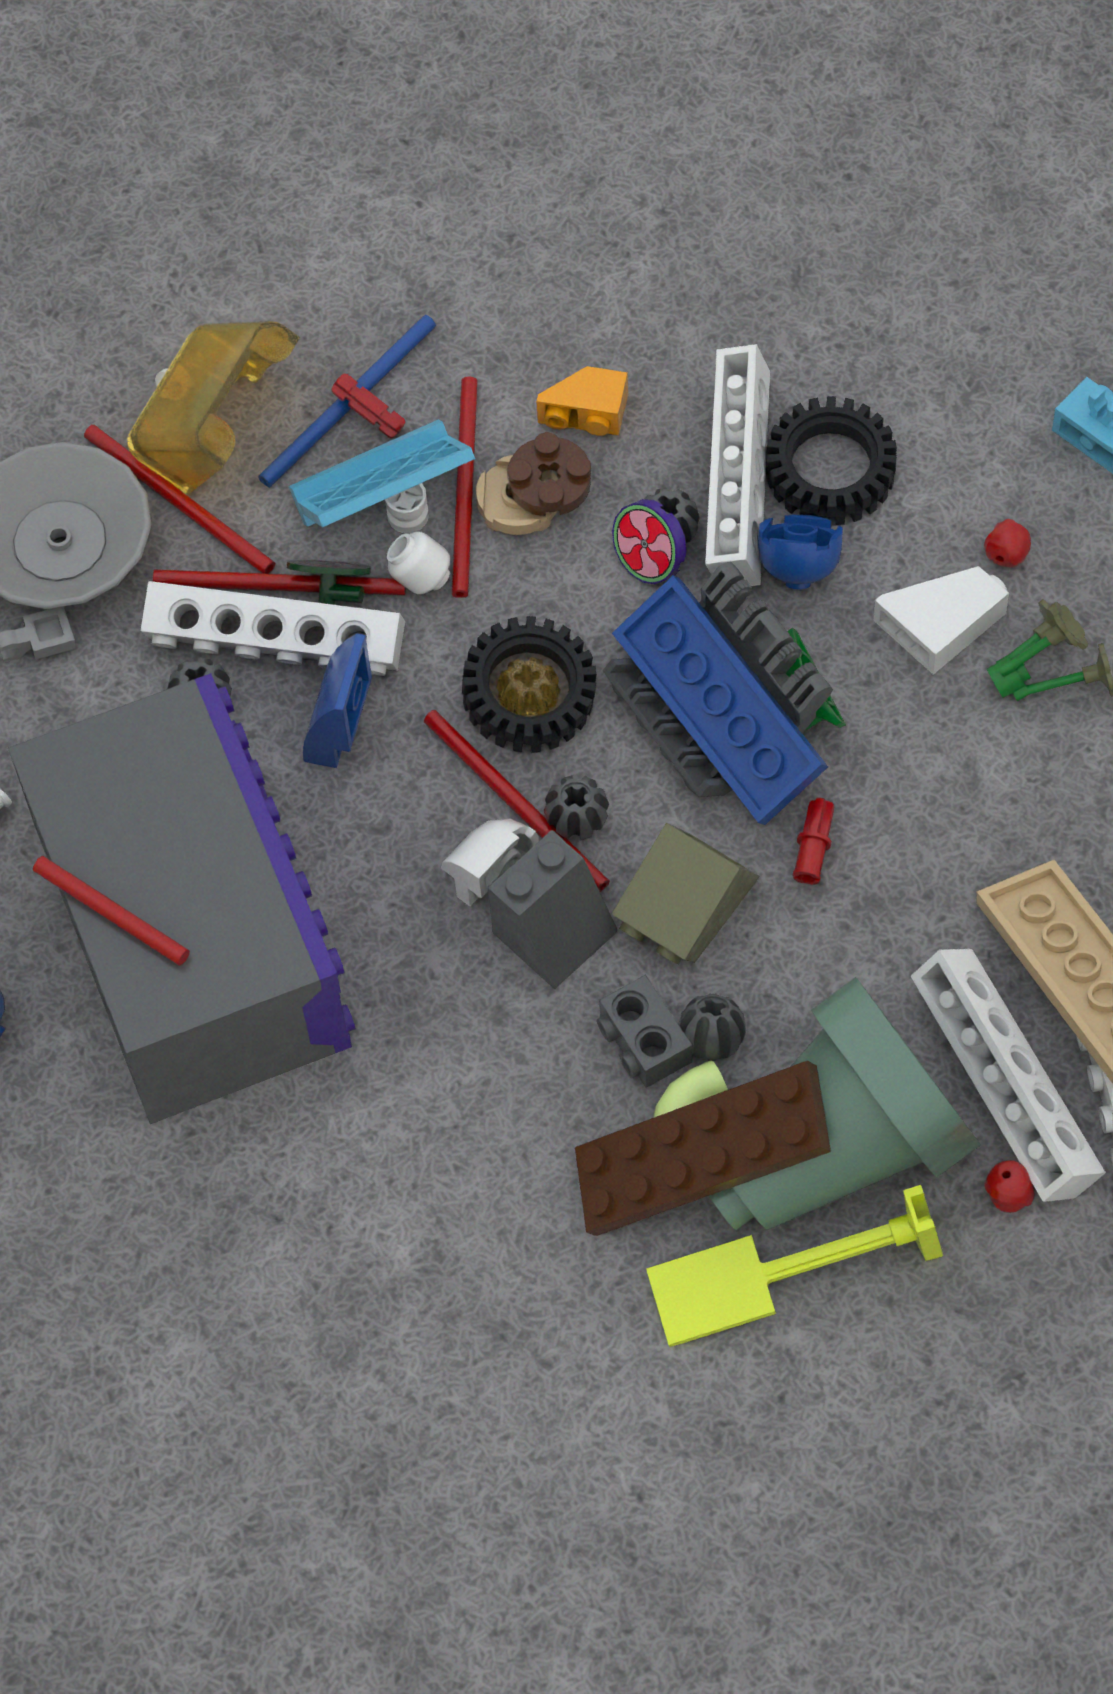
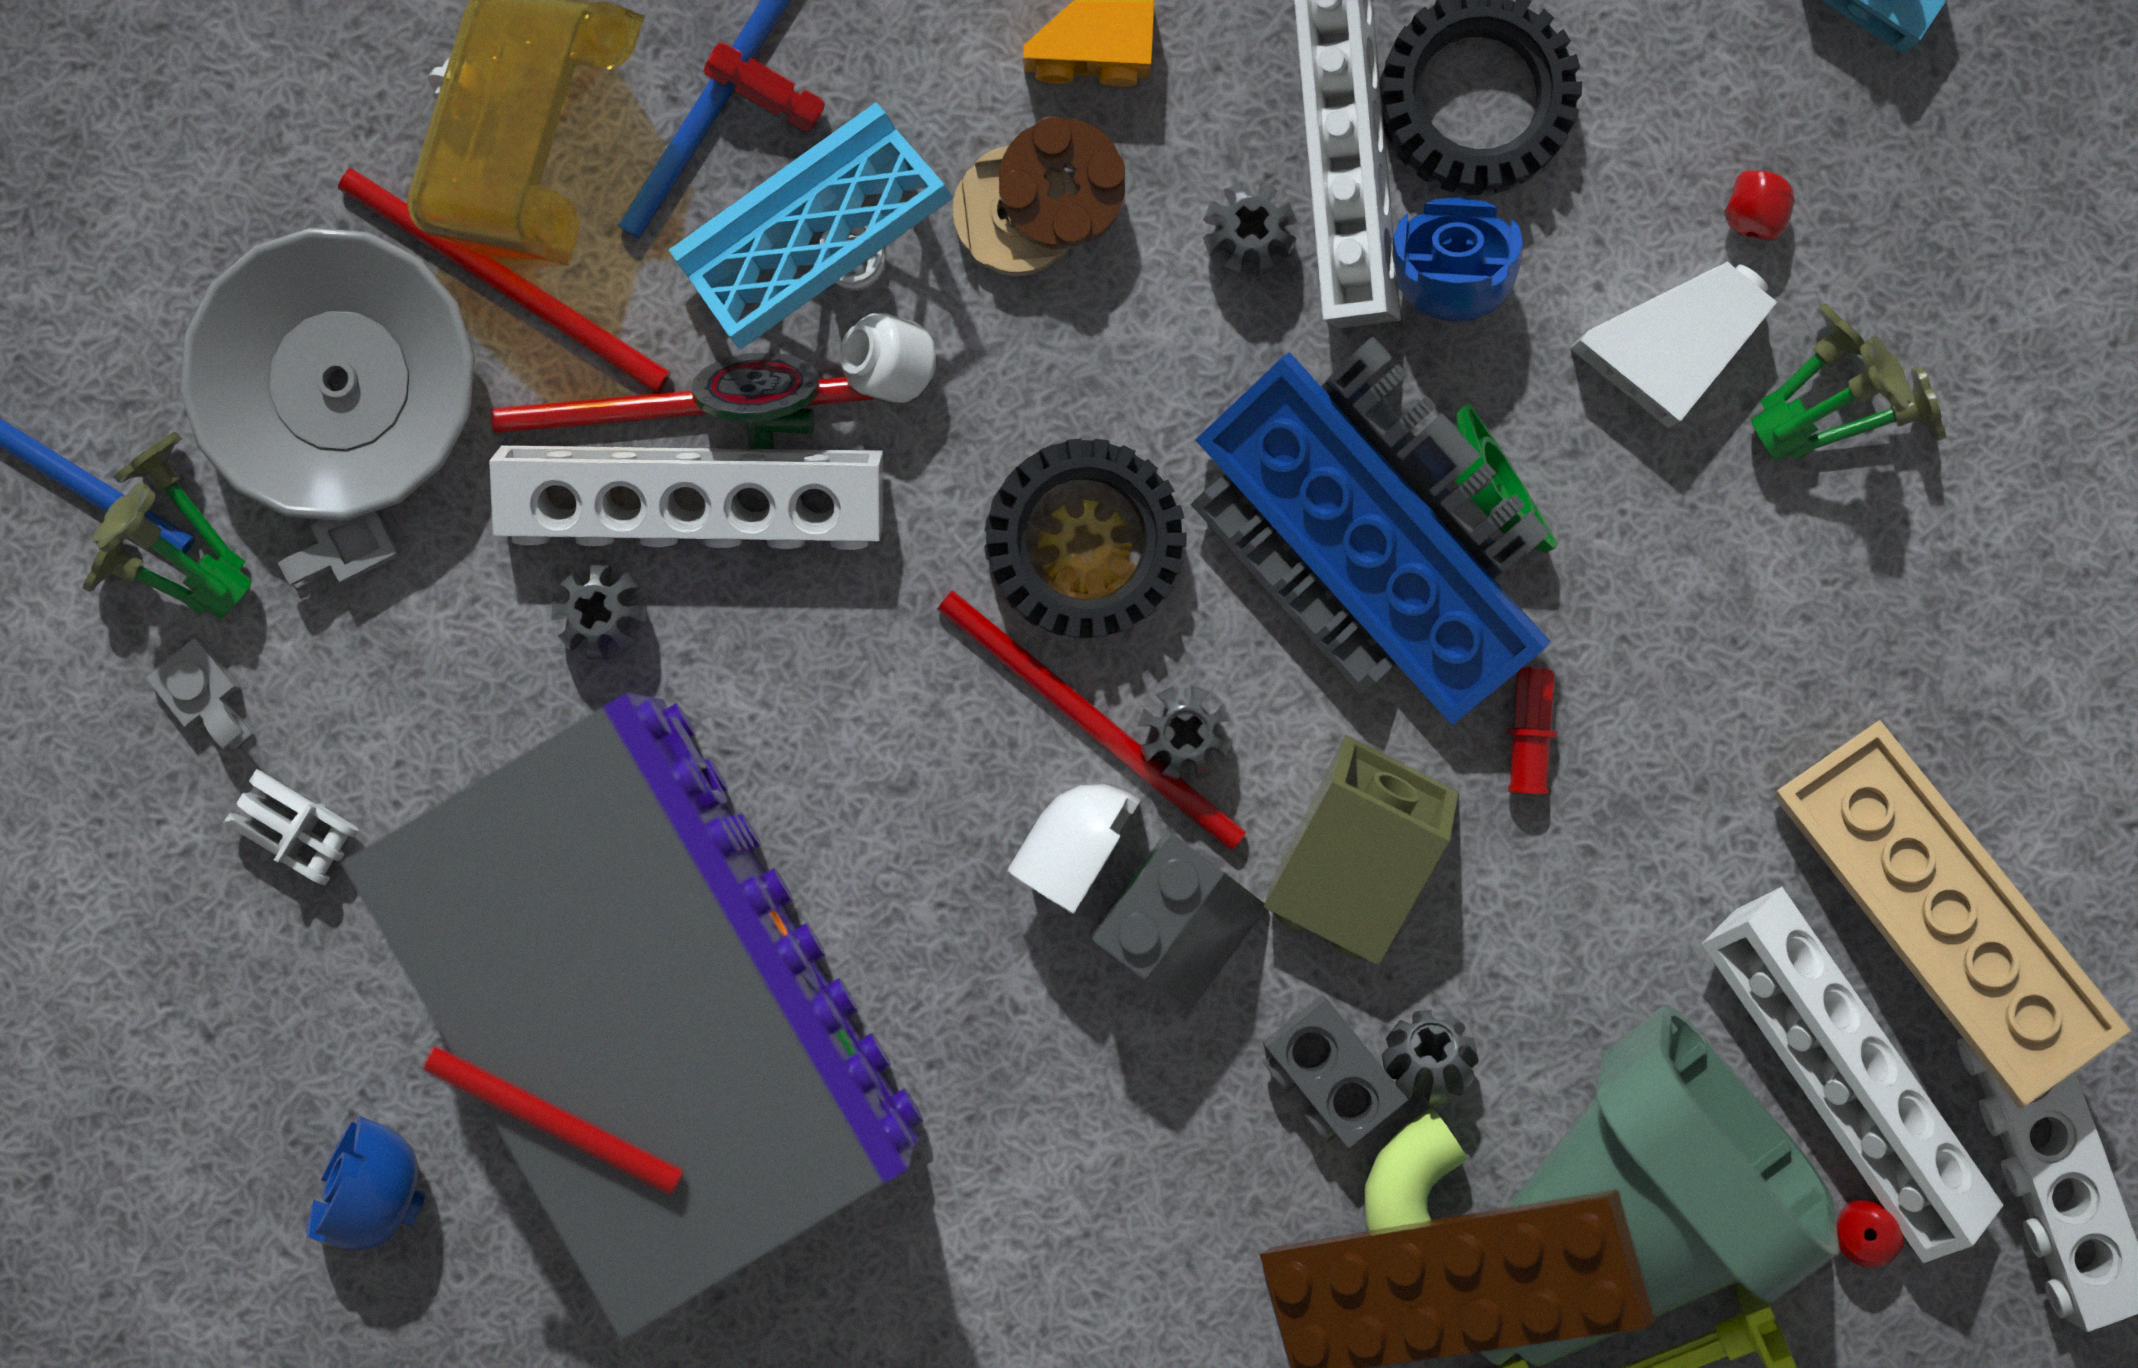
camera: 15 degrees left, 25 degrees up
(339, 703) = (812, 629): blue slope -> none
(464, 490) = (935, 225): red piece -> none
(648, 541) = (1229, 280): tile -> none

